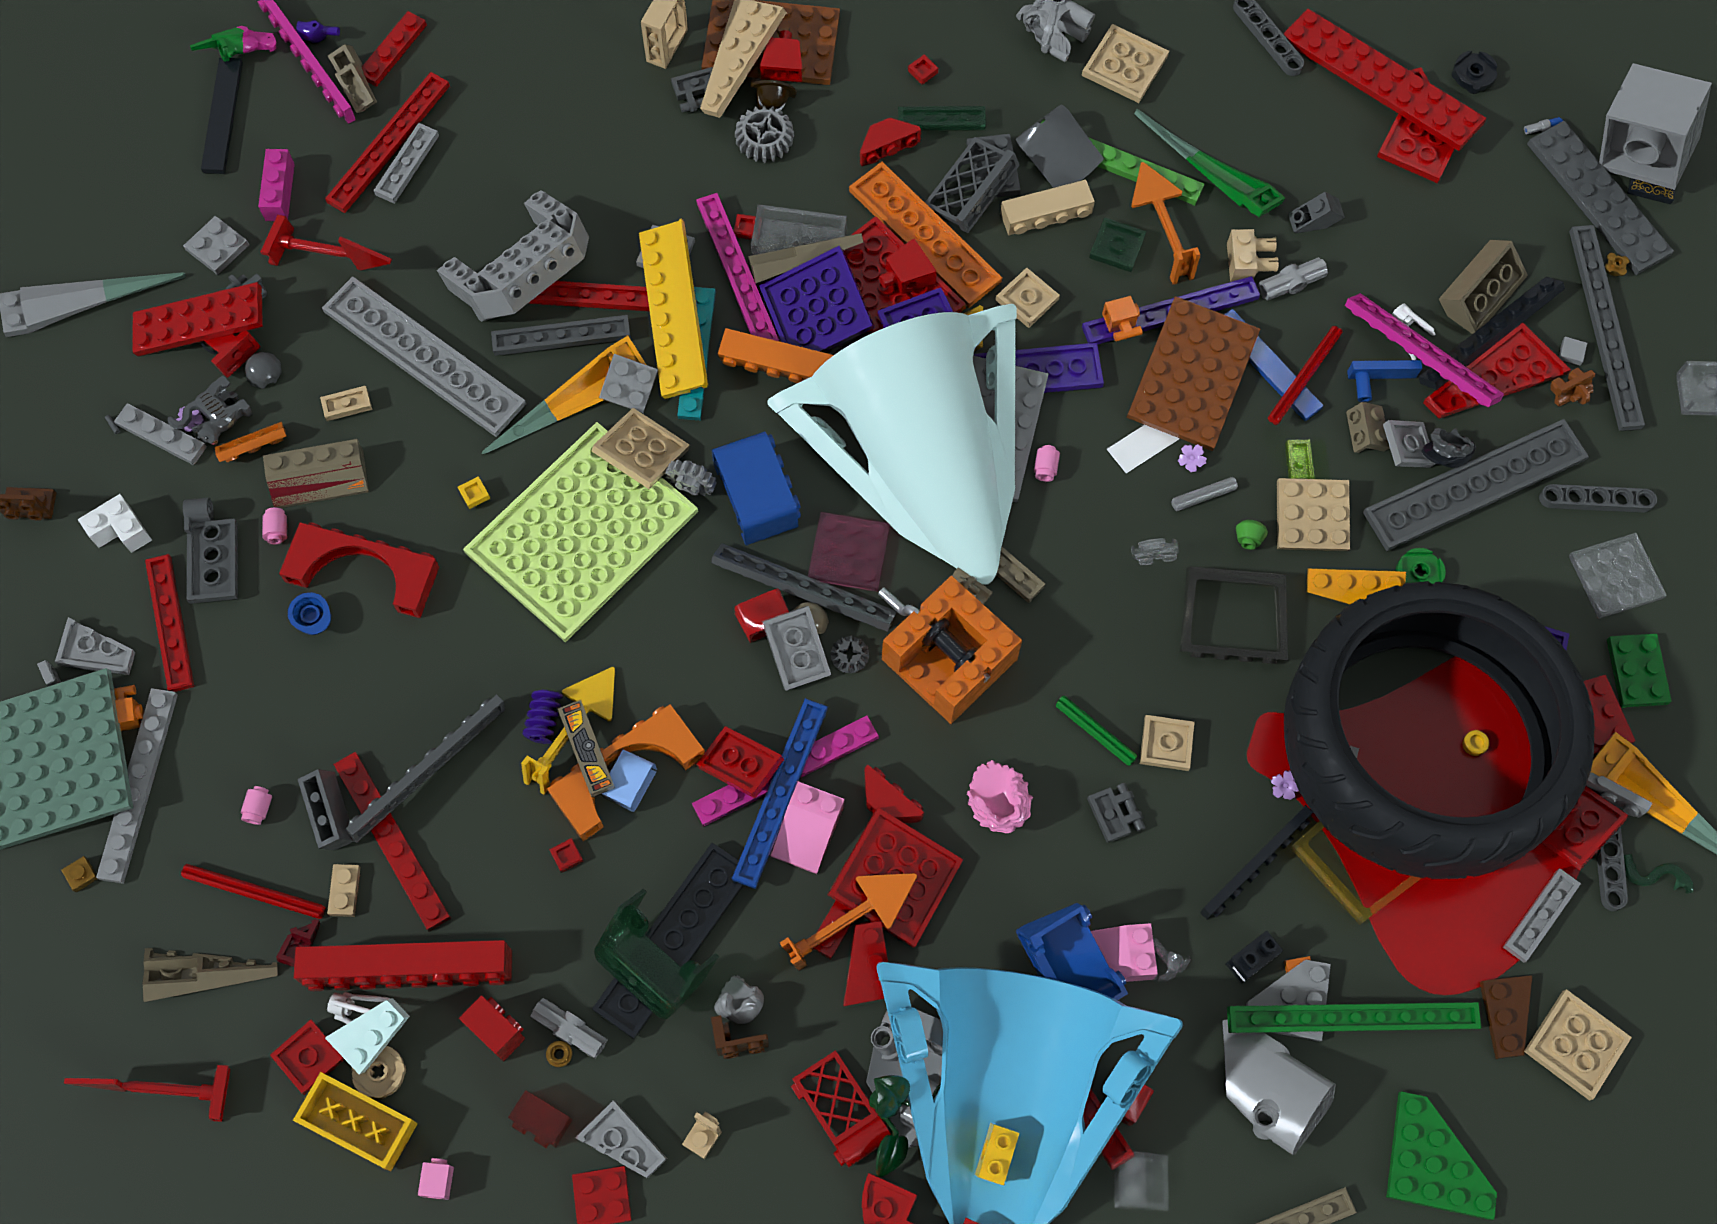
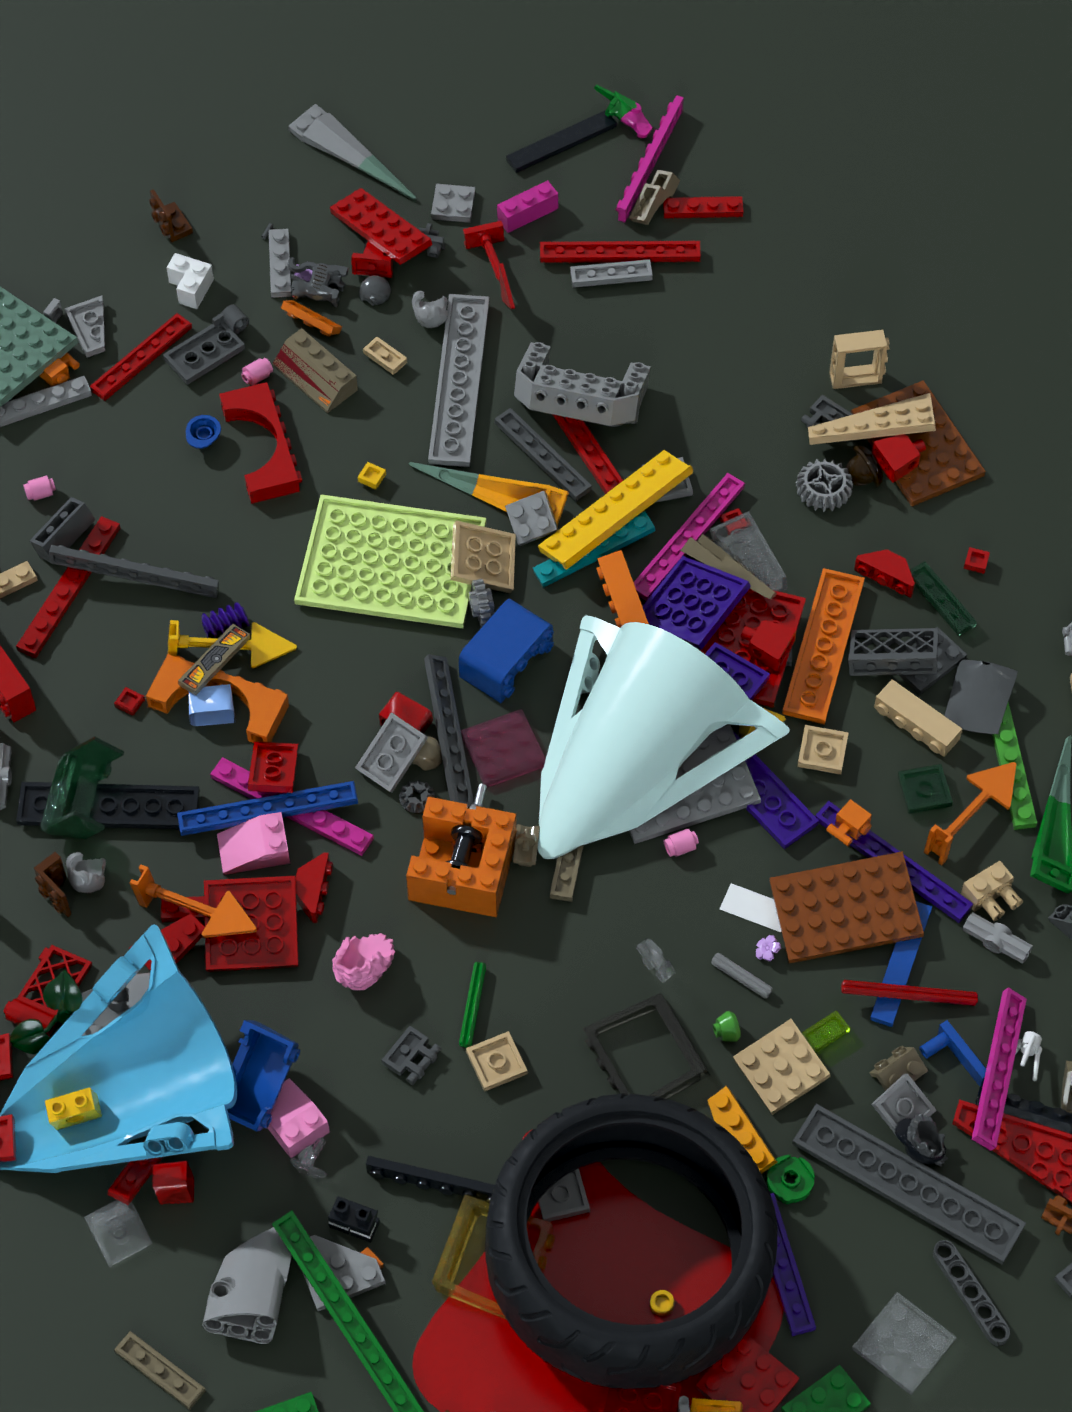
camera: 60 degrees right, 10 degrees down
(315, 31) = (675, 151): dark purple piece -> none
(330, 334) = (429, 313): none -> light grey hair

